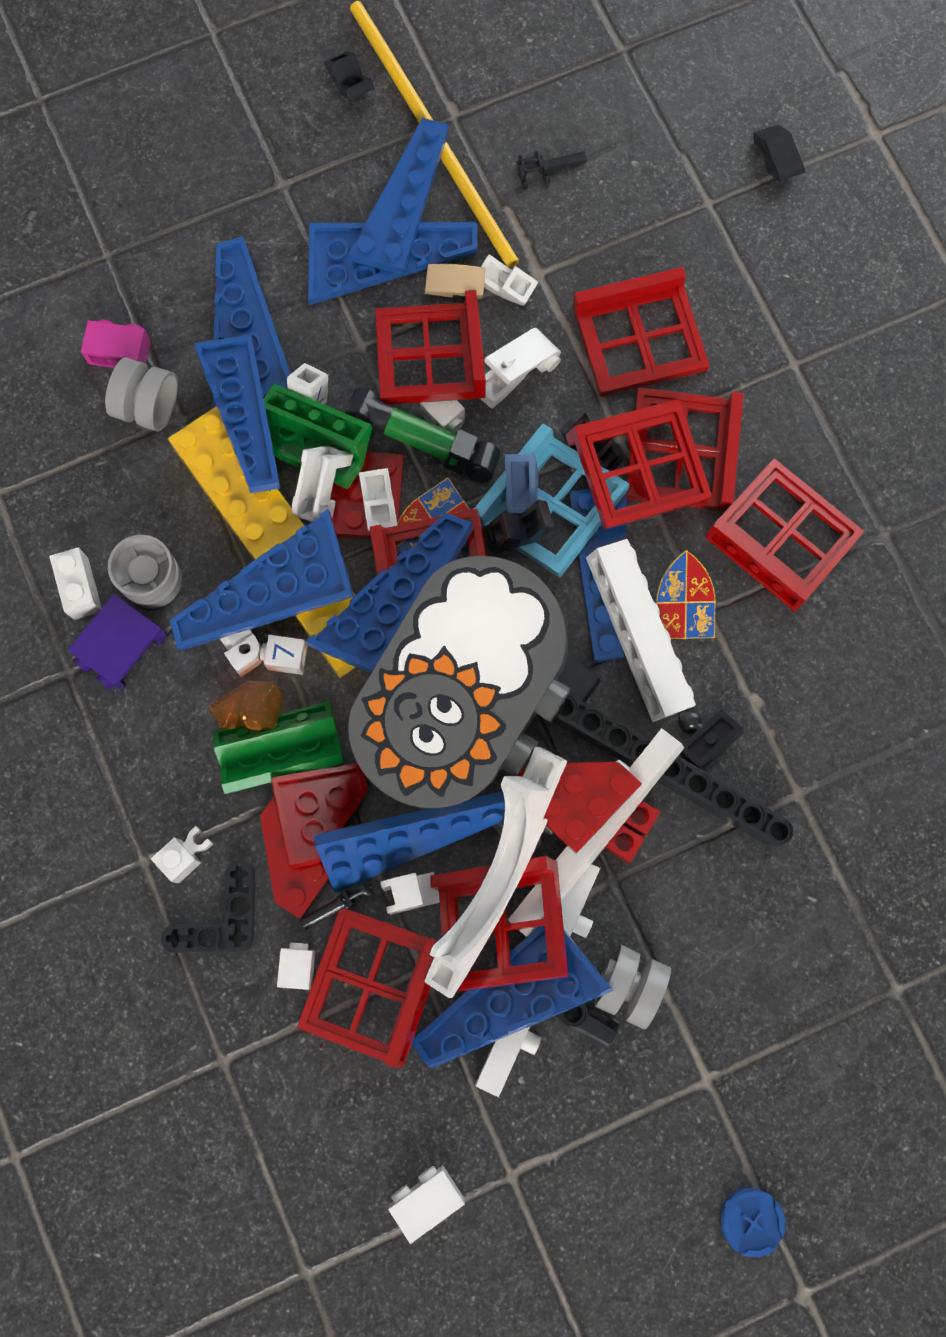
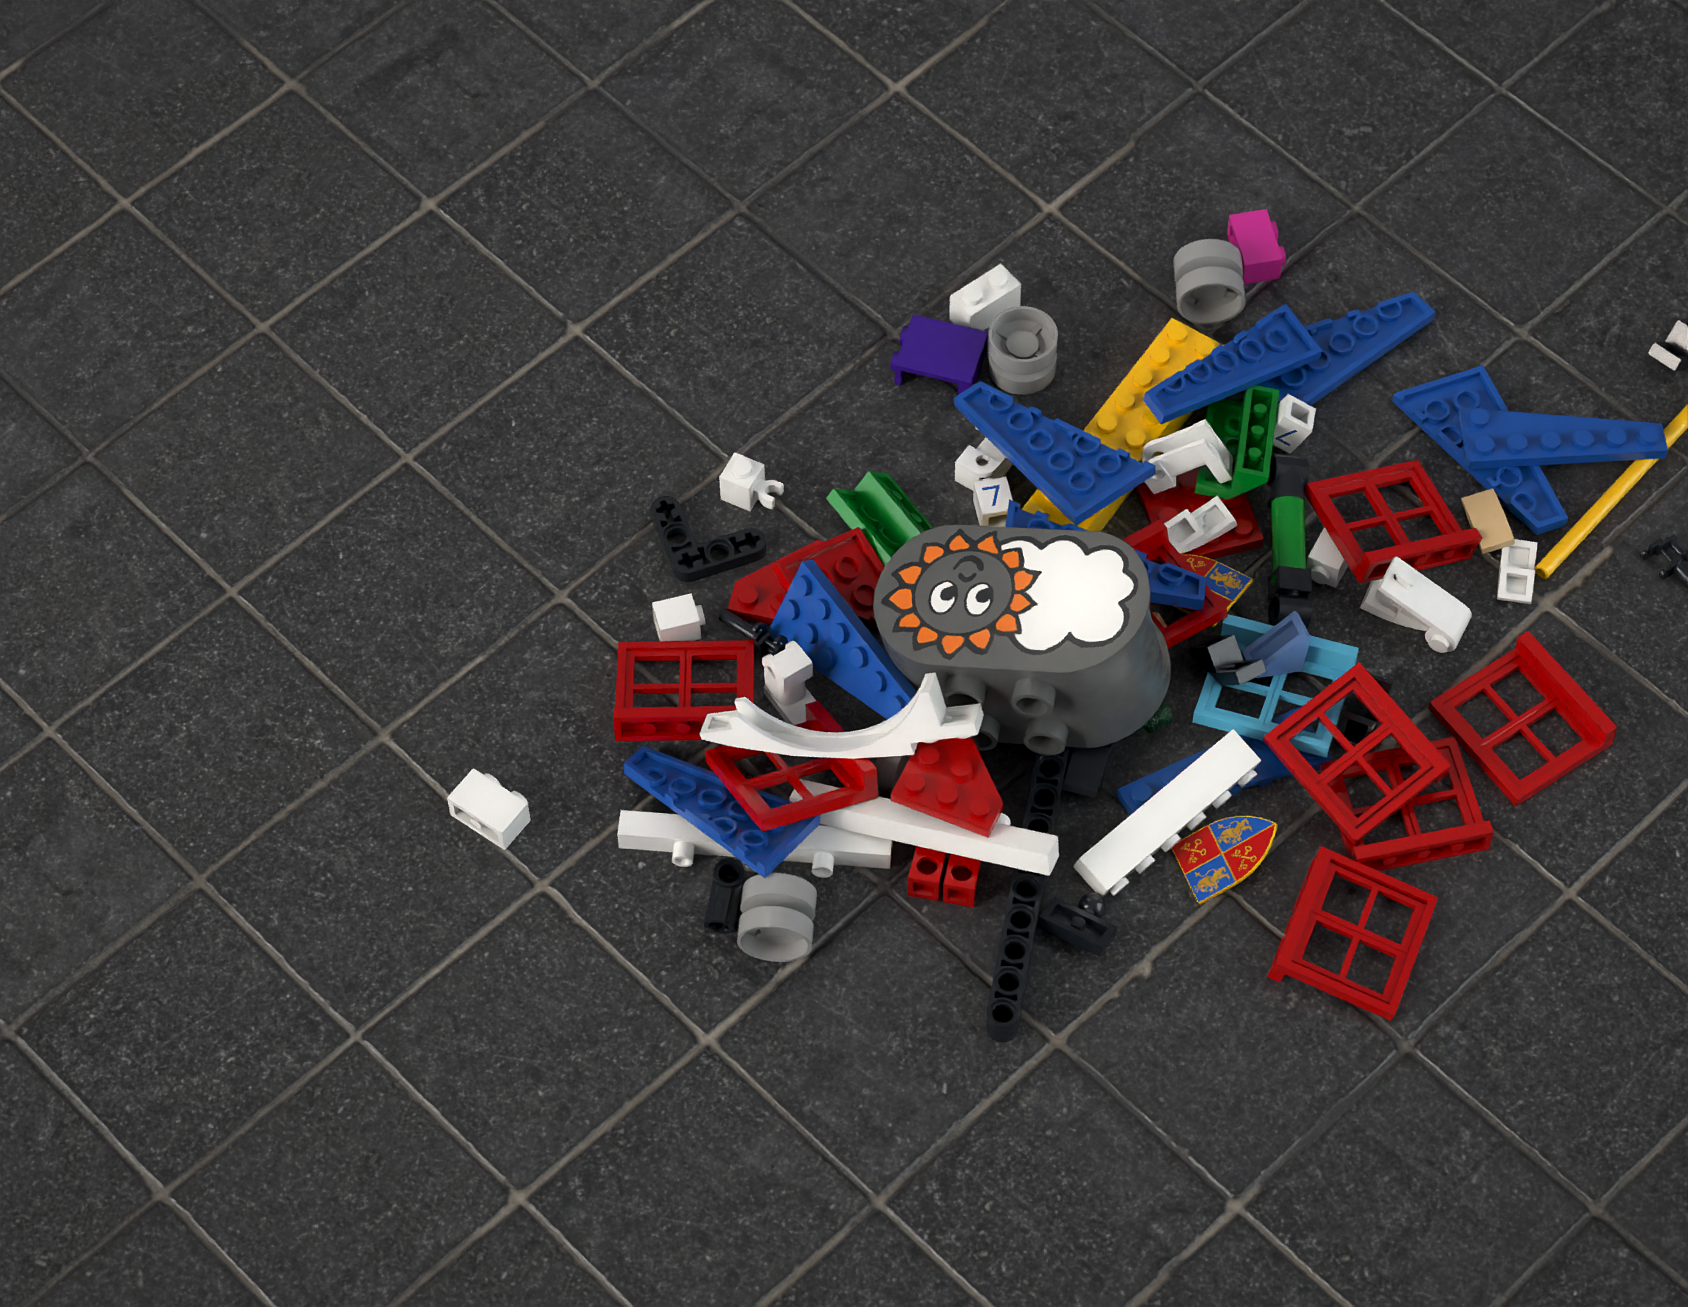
camera: 75 degrees right, 20 degrees down
(249, 706) = (925, 489): clear orange slope -> none
(752, 1222) = (576, 1122): blue tile -> none

